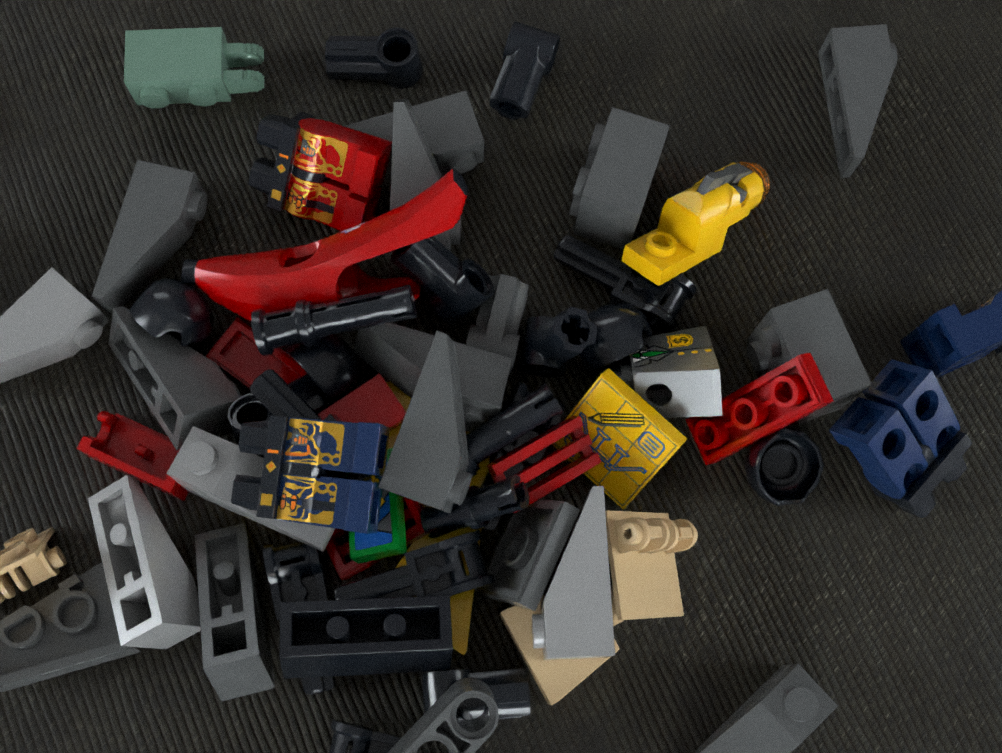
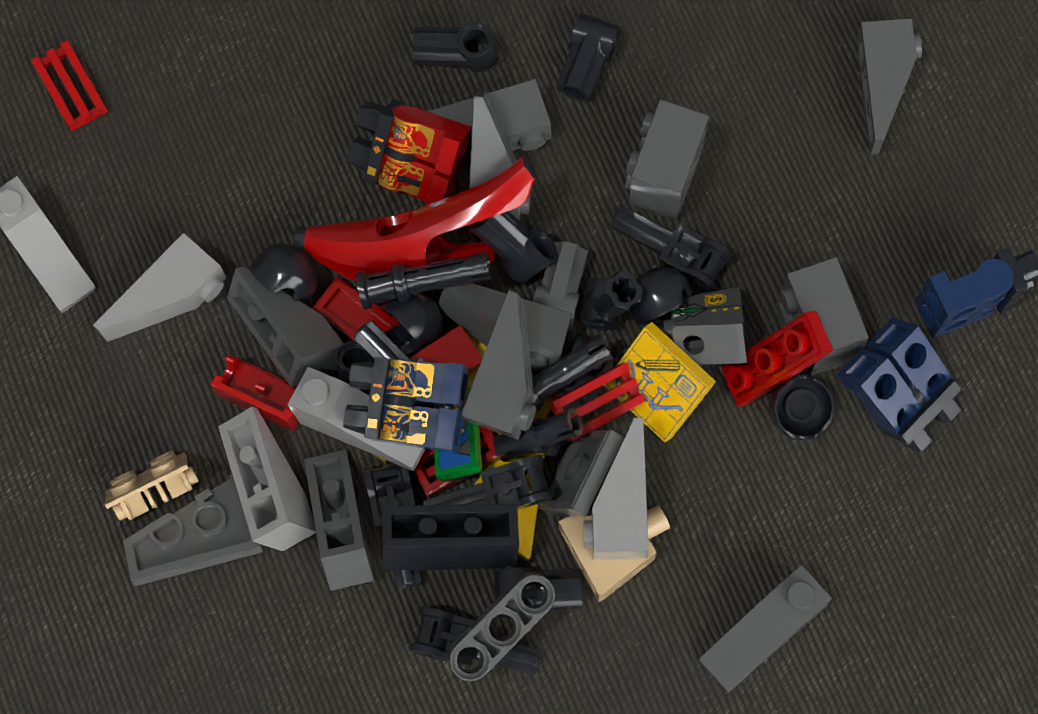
camera: 10 degrees right, 0 degrees up
(150, 228) = (264, 197): dark grey slope -> none
(188, 66) = (292, 55): sand green hinge -> none
(645, 563) = (681, 485): tan hinge -> none
(697, 221) = (735, 195): yellow plate -> none

